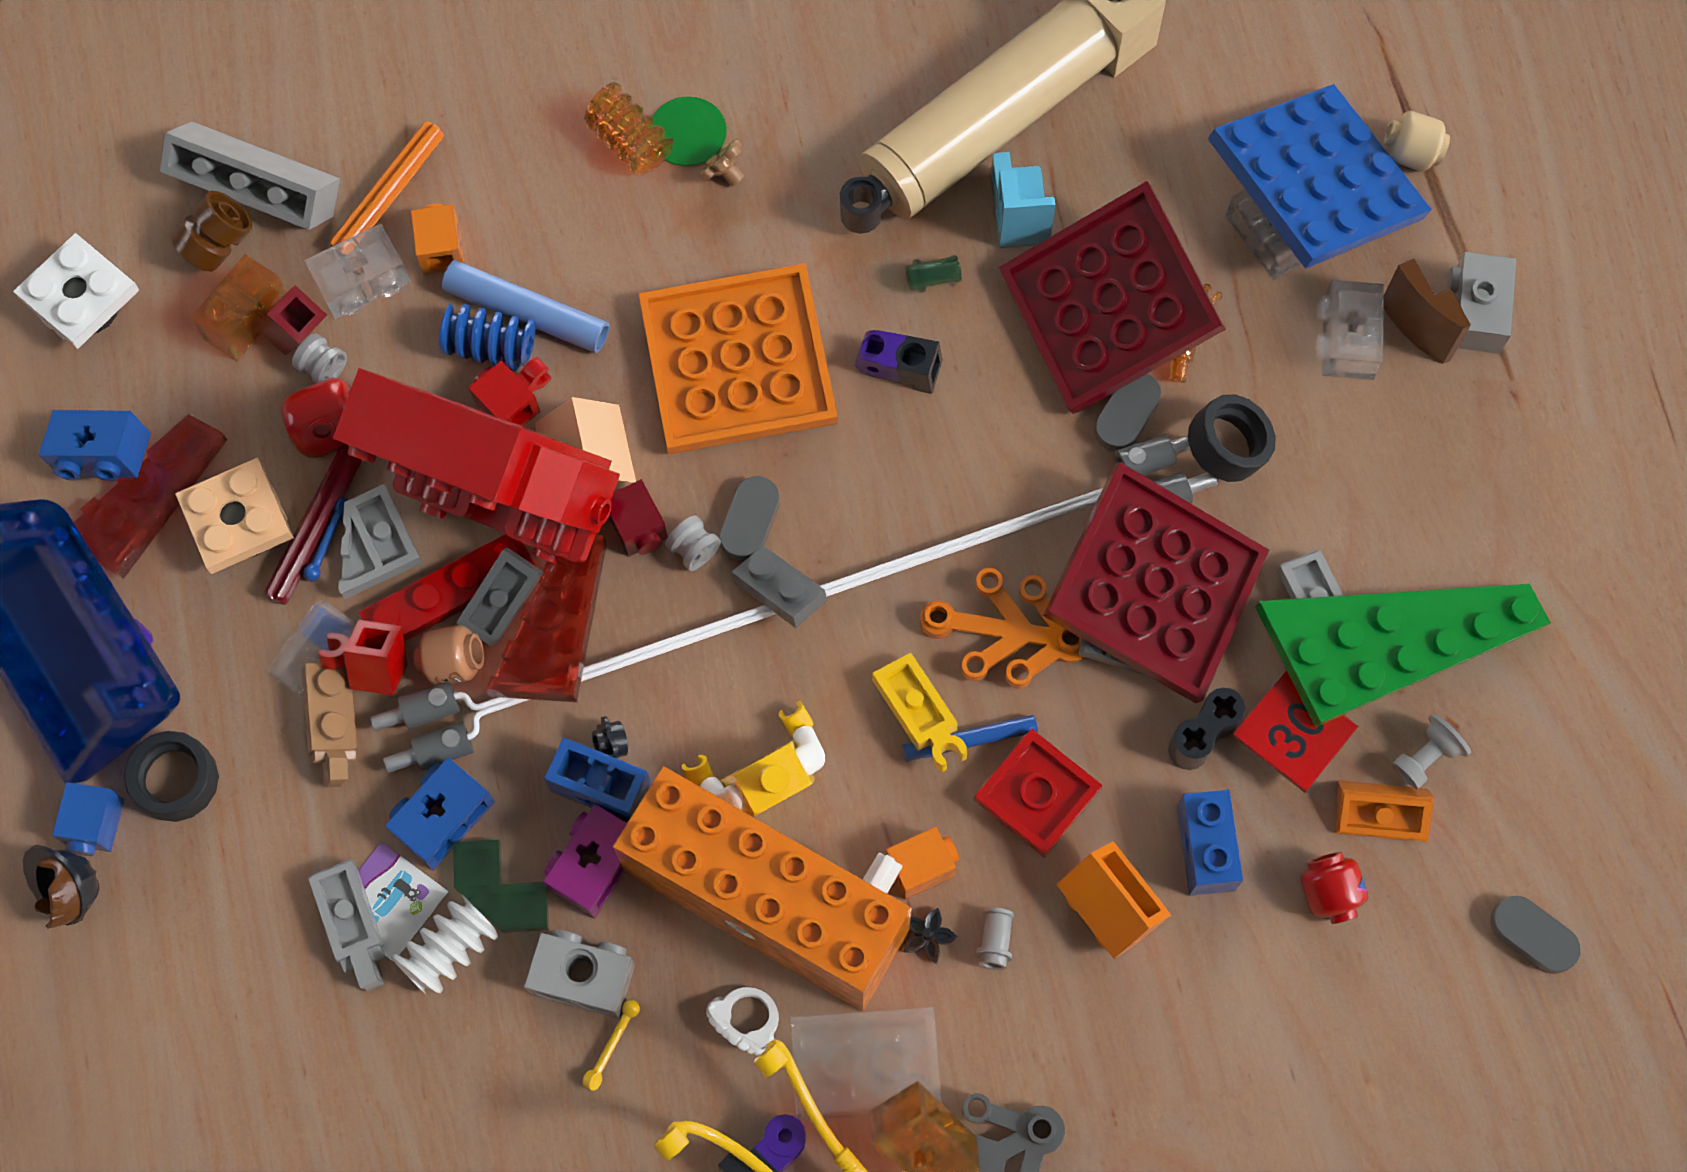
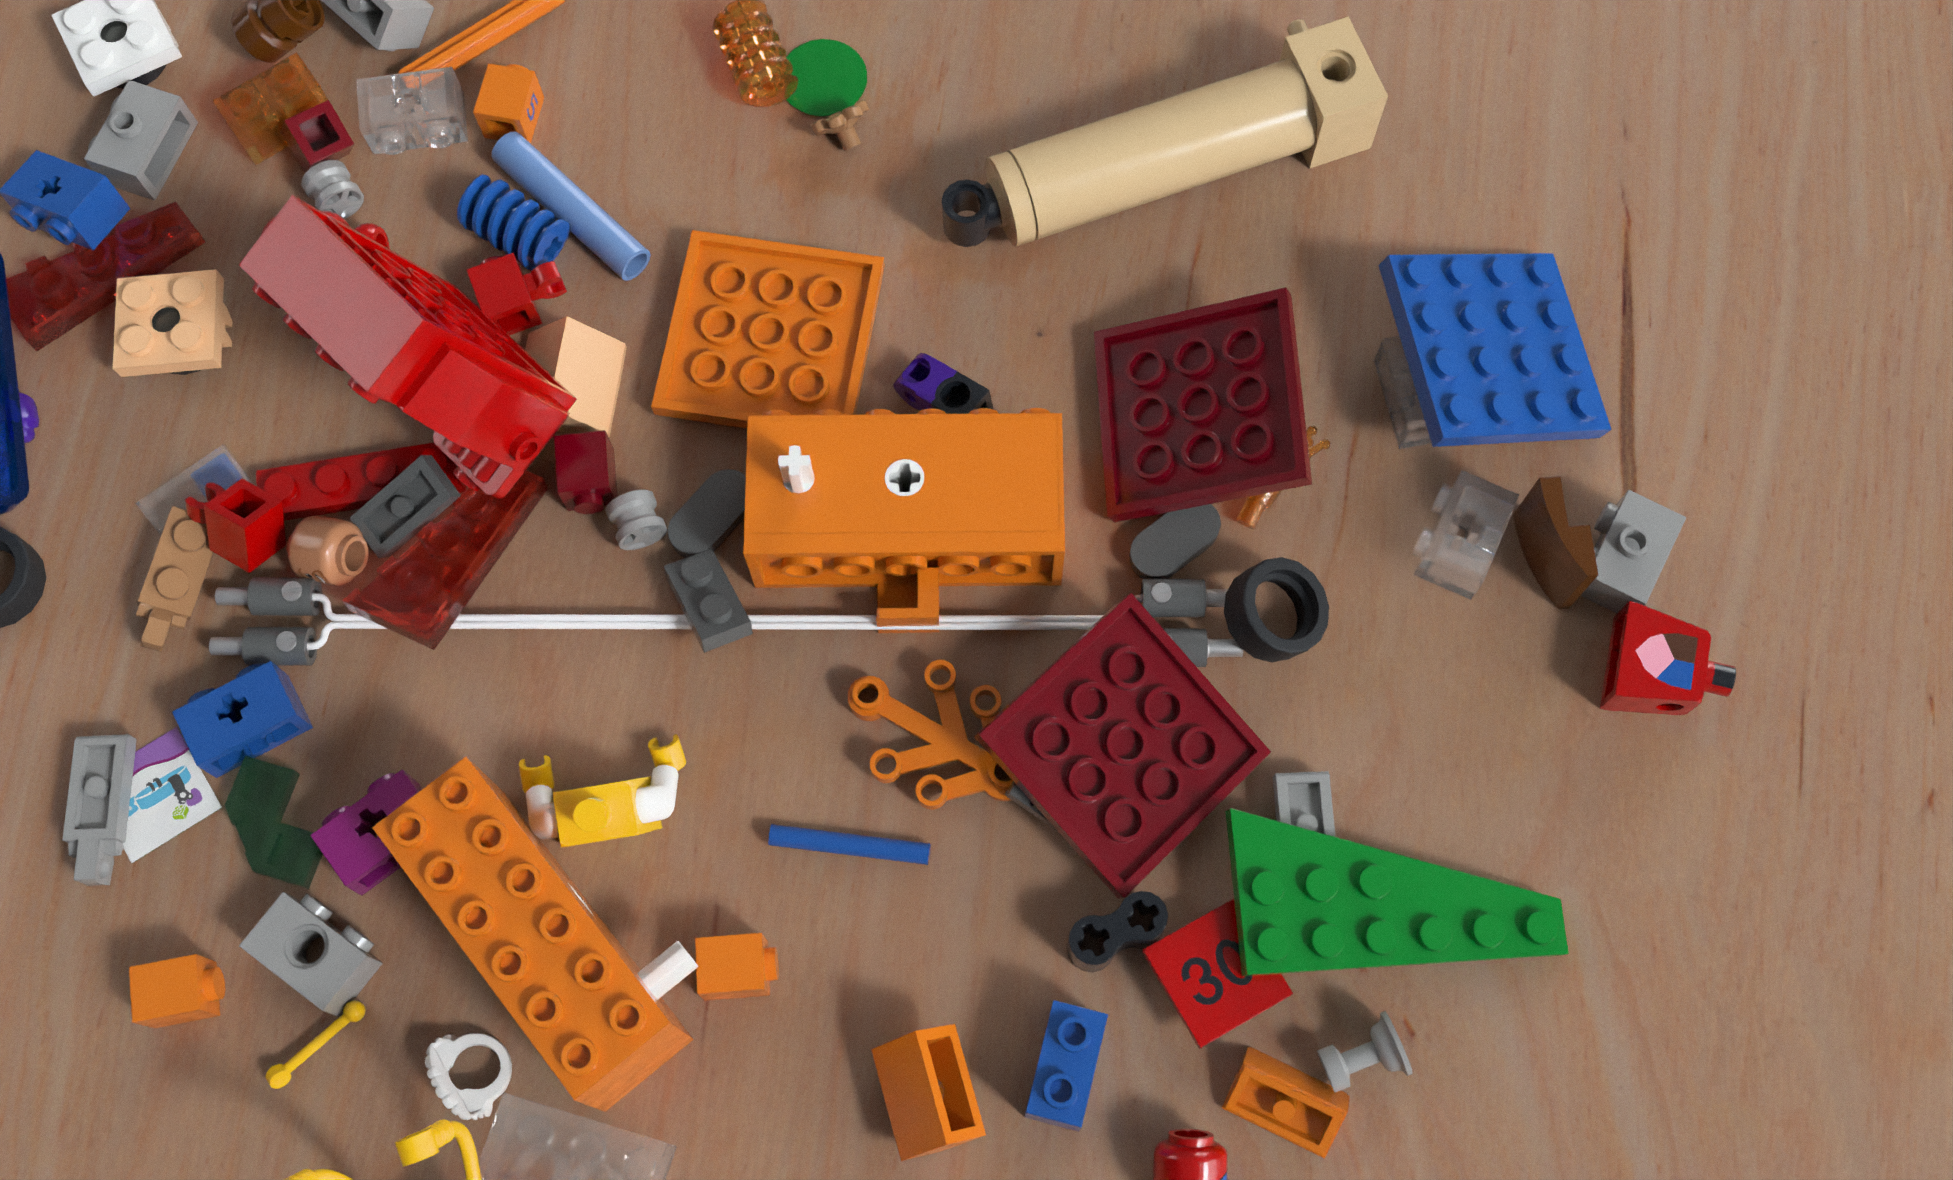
camera: 20 degrees right, 0 degrees up
(133, 370) = (141, 139): none -> light grey brick
(311, 527) = (235, 377): dark red axle -> none
(312, 571) = (289, 353): blue hinge -> none
(373, 542) = (303, 405): light grey wing -> none
(445, 946) = (184, 870): white piece -> none
(483, 1043) = (175, 991): none -> orange brick
(597, 779) = (411, 737): blue brick -> none
(610, 738) = (455, 704): black plate -> none
(910, 450) = (903, 492): none -> orange piece
(919, 709) = (803, 791): yellow plate -> none
(929, 935) = (711, 1051): black plant -> none
(933, 273) = (1020, 314): clear green pin -> none
(941, 532) = (909, 603): none -> orange panel
(995, 939) = (782, 1085): light grey pin -> none
(1020, 205) = (1145, 268): medium azure panel -> none
(1038, 792) = (897, 935): red plate -> none
(1416, 141) = (1623, 347): tan head -> none
(1536, 379) = (1660, 664): none -> red torso

